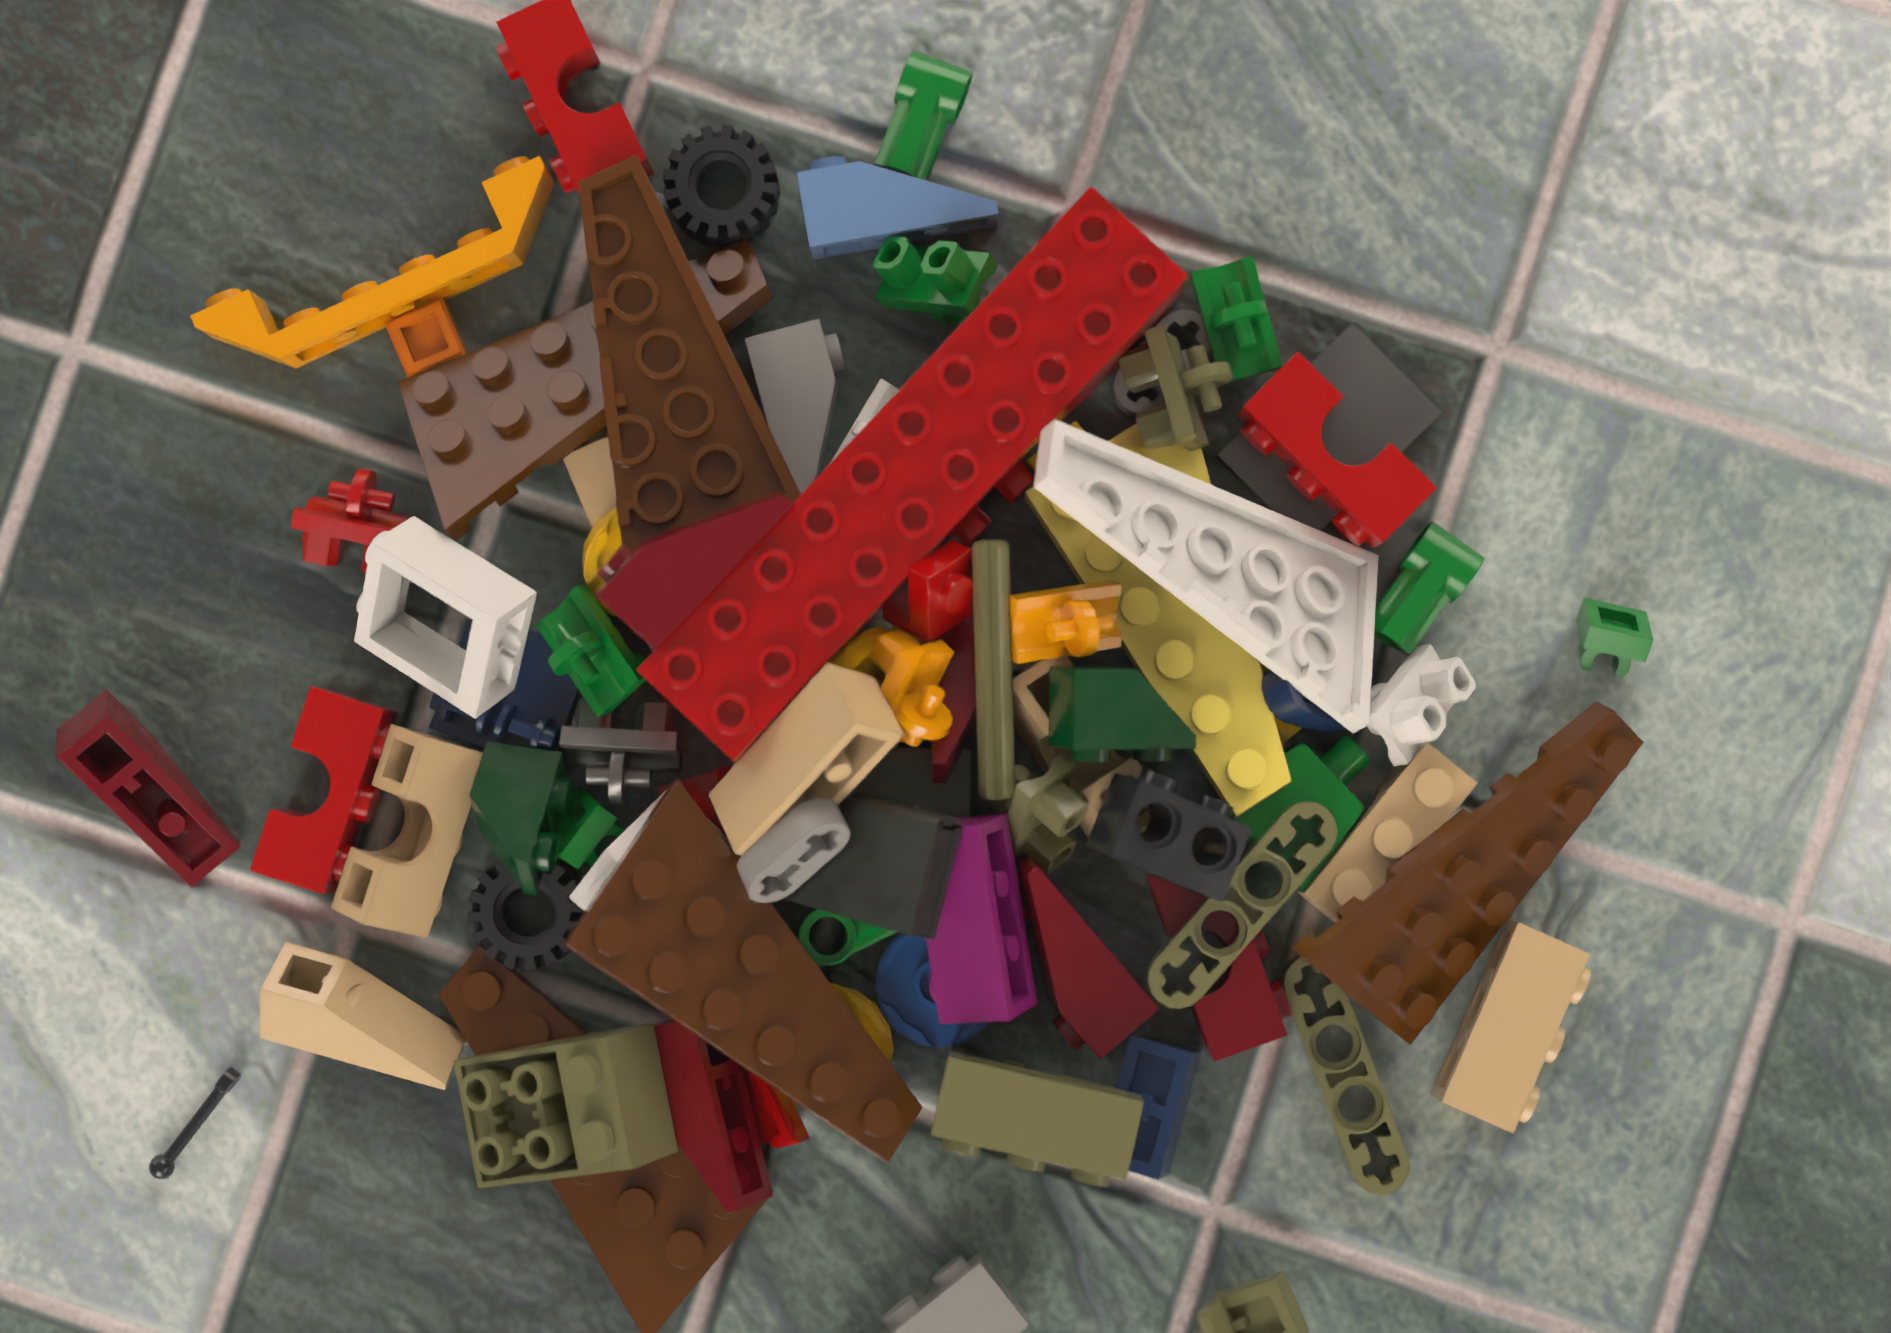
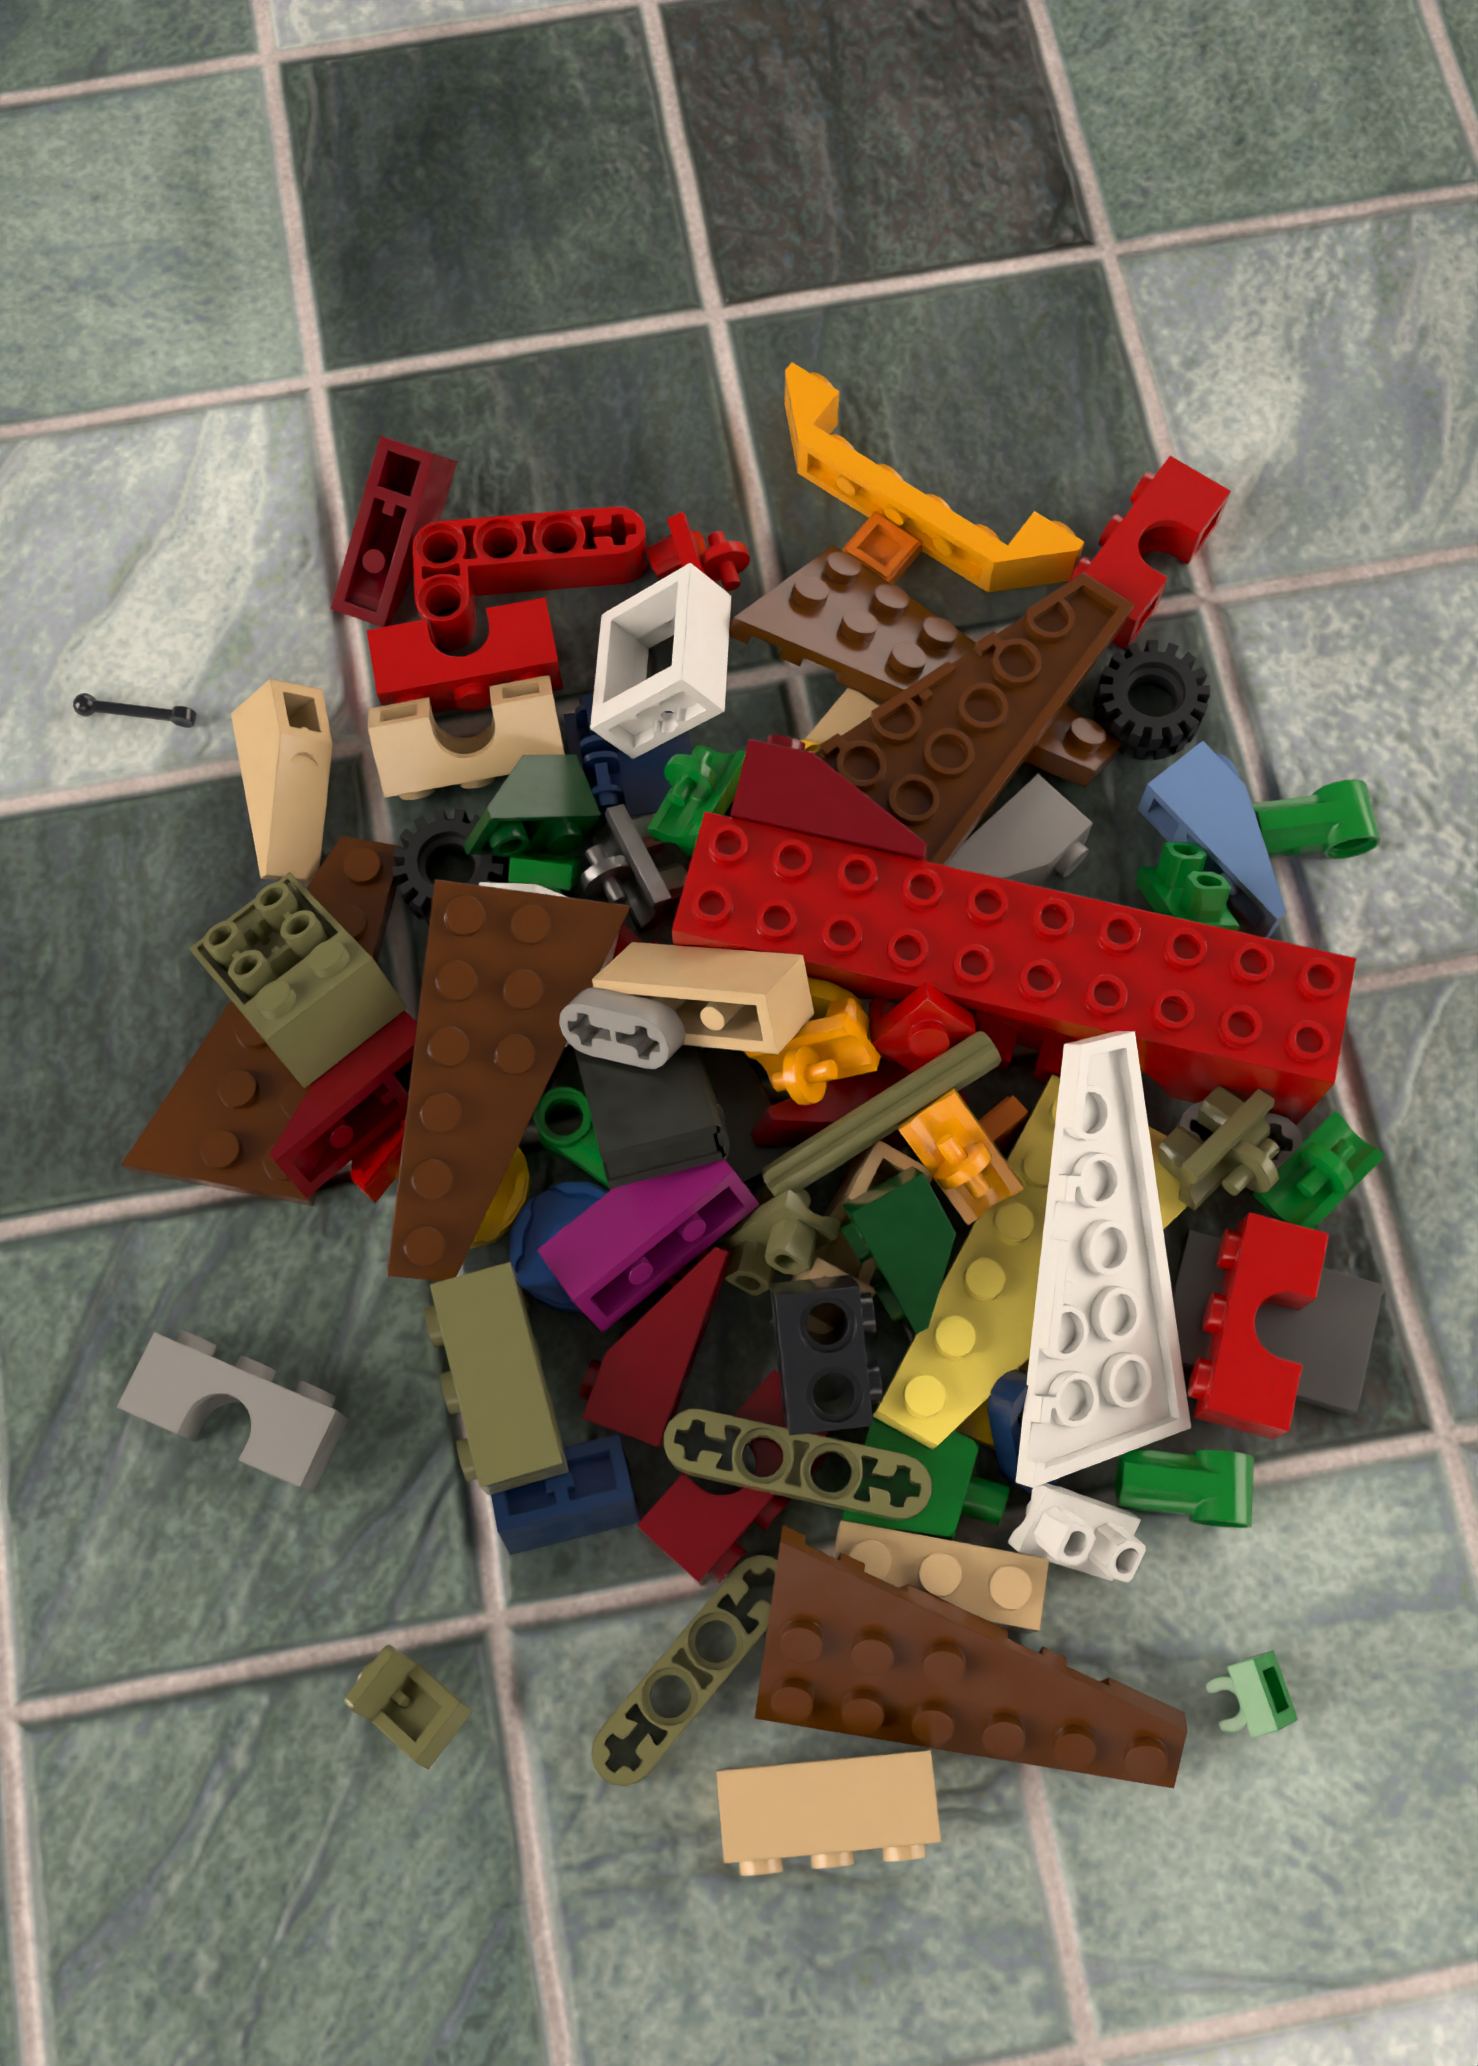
camera: 55 degrees right, 15 degrees down
(259, 679) = (531, 567): none -> red beam
(1041, 563) = (1005, 1121): none -> orange tile

